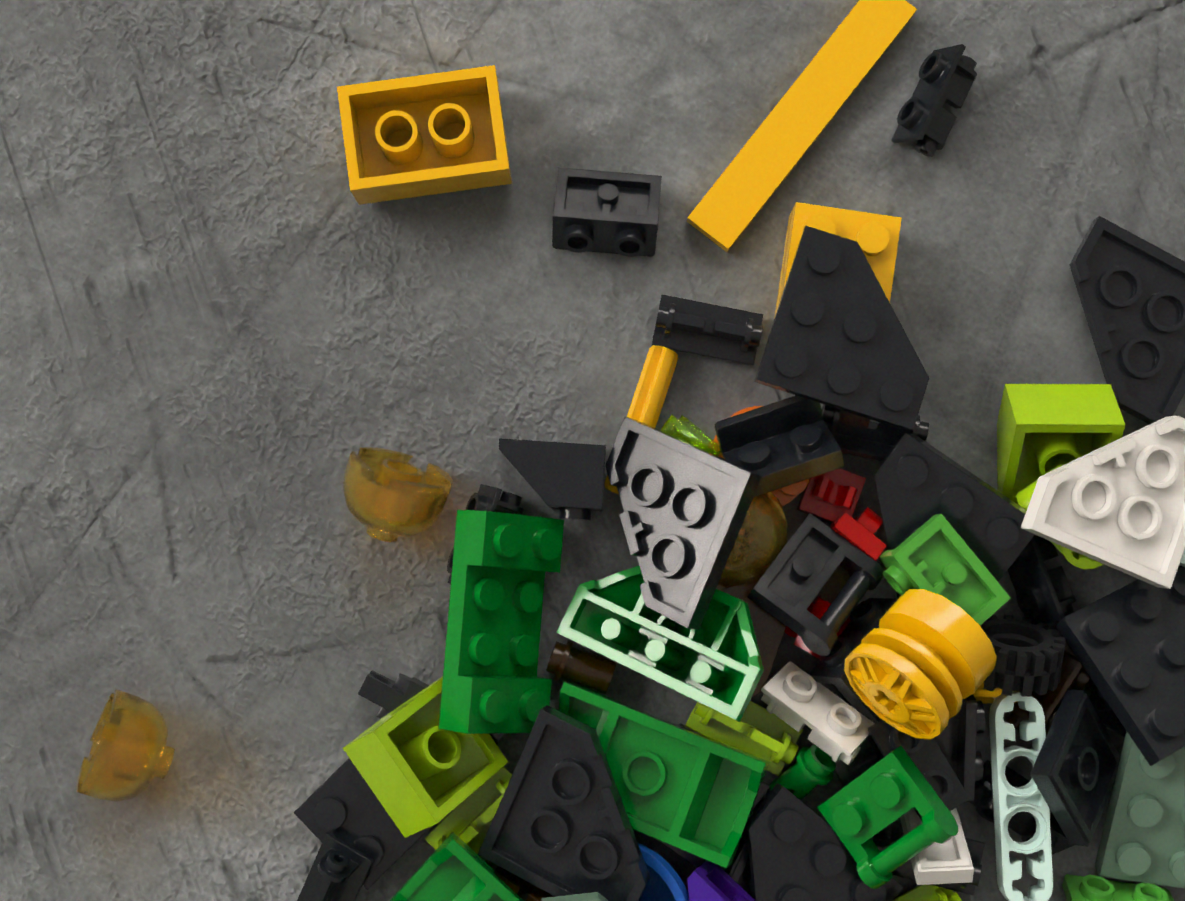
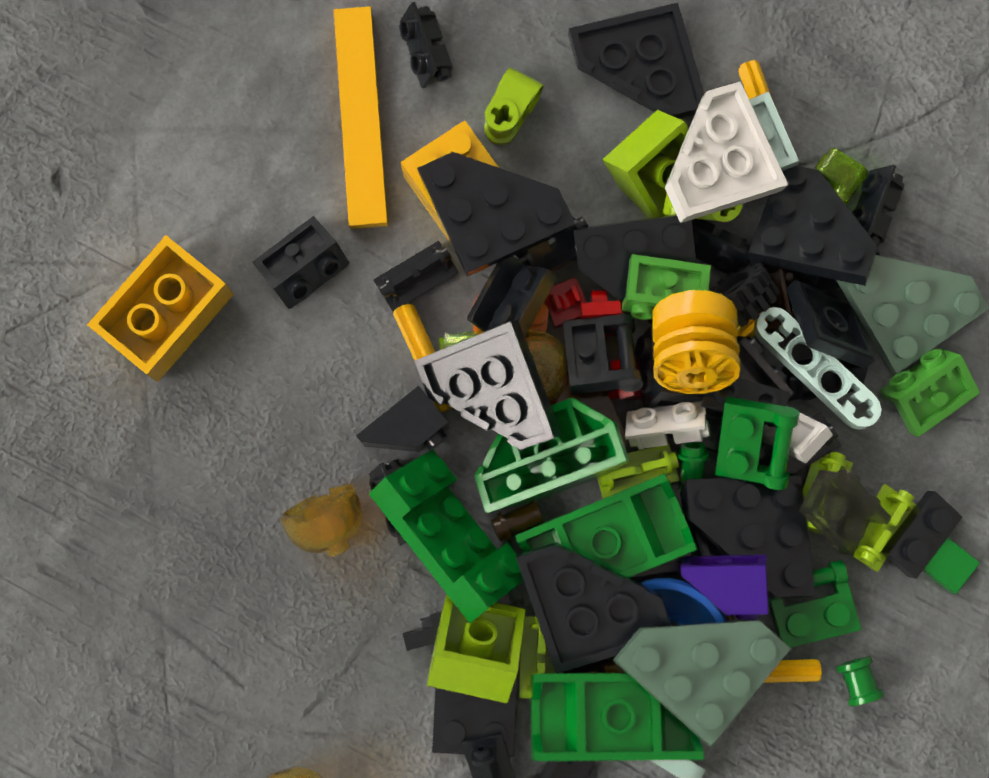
camera: 45 degrees left, 5 degrees down
(970, 241) = (513, 102): none -> lime piece

